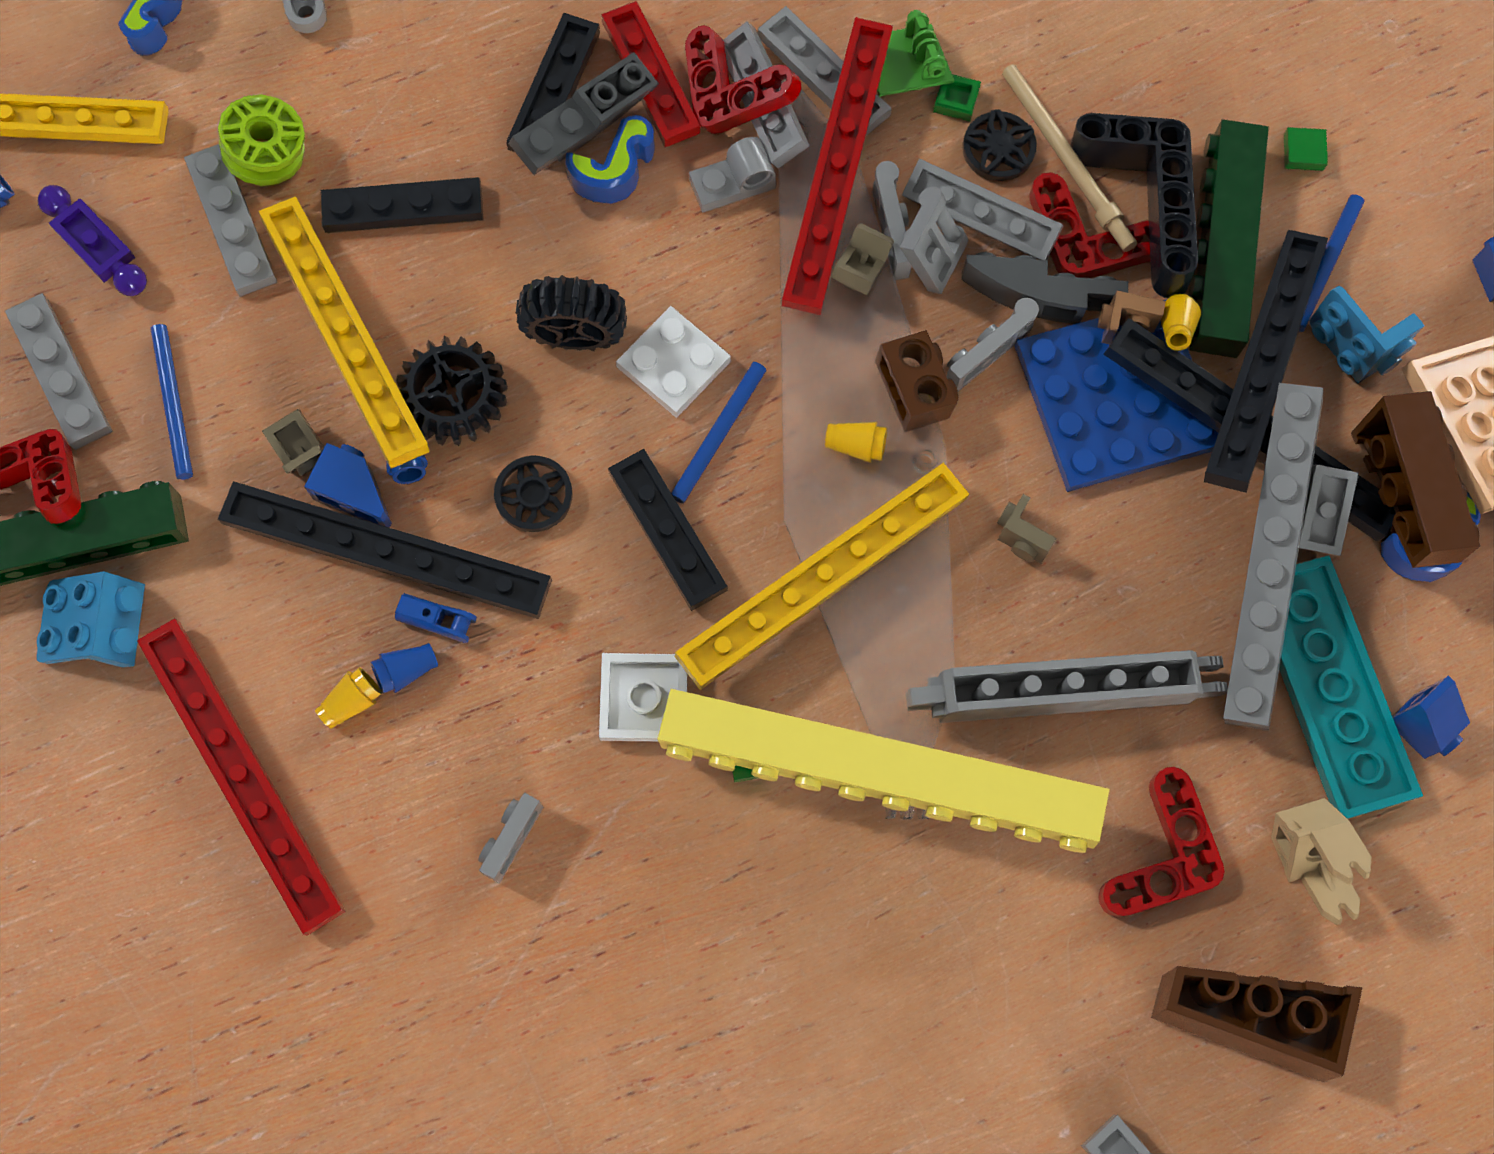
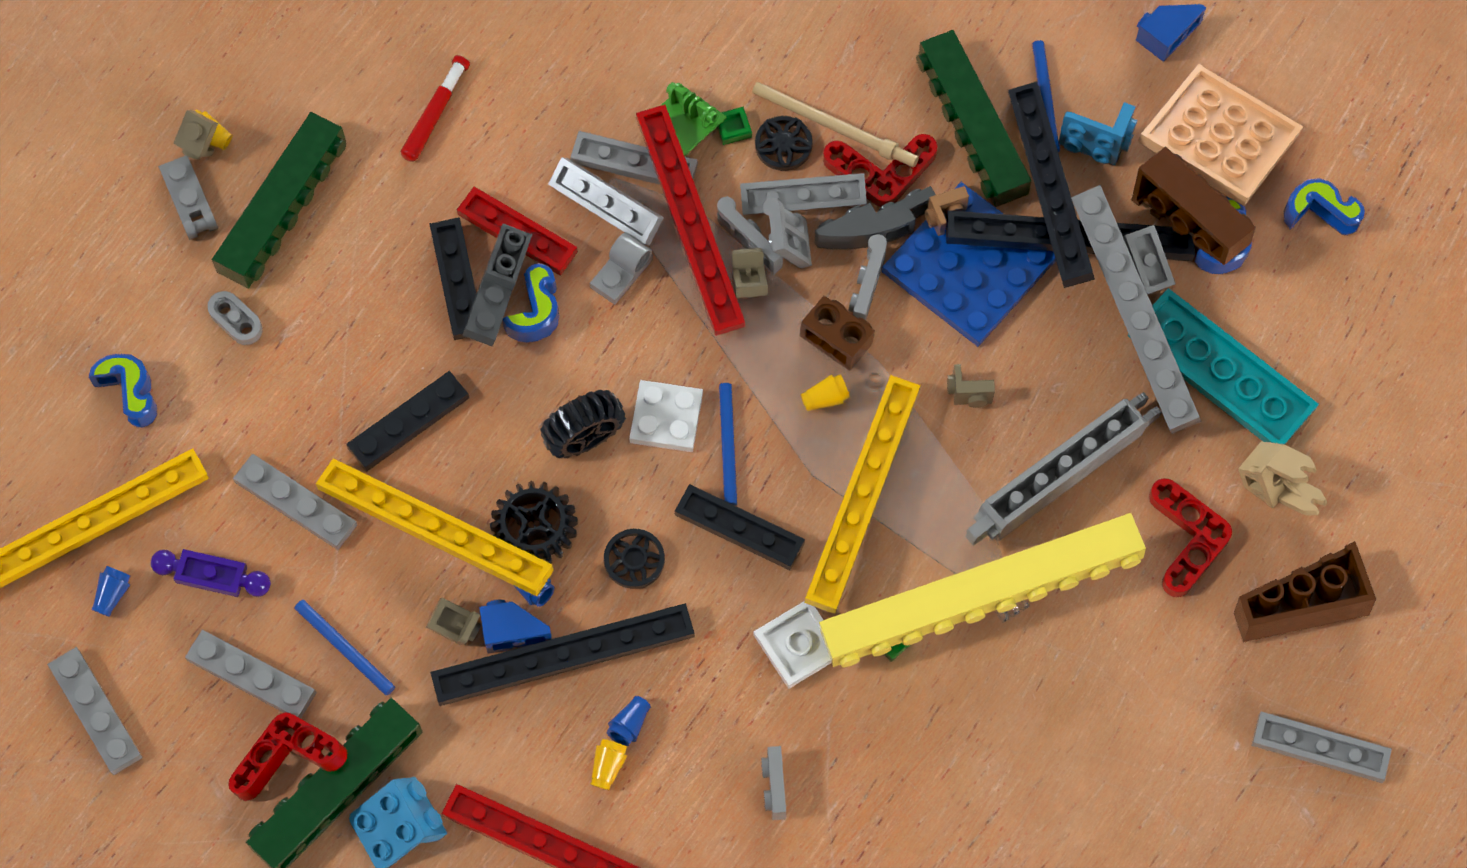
camera: 30 degrees left, 5 degrees down
(261, 118) = (288, 417): lime wheel -> none
(430, 616) = (621, 679): blue bar -> none
(726, 95) = (574, 217): red beam -> none
(1165, 152) = (897, 85): black beam -> none
(1180, 321) = (981, 193): yellow cone -> none
(1305, 149) = (983, 28): green tile -> none
(1433, 719) = (1295, 352): blue slope -> none

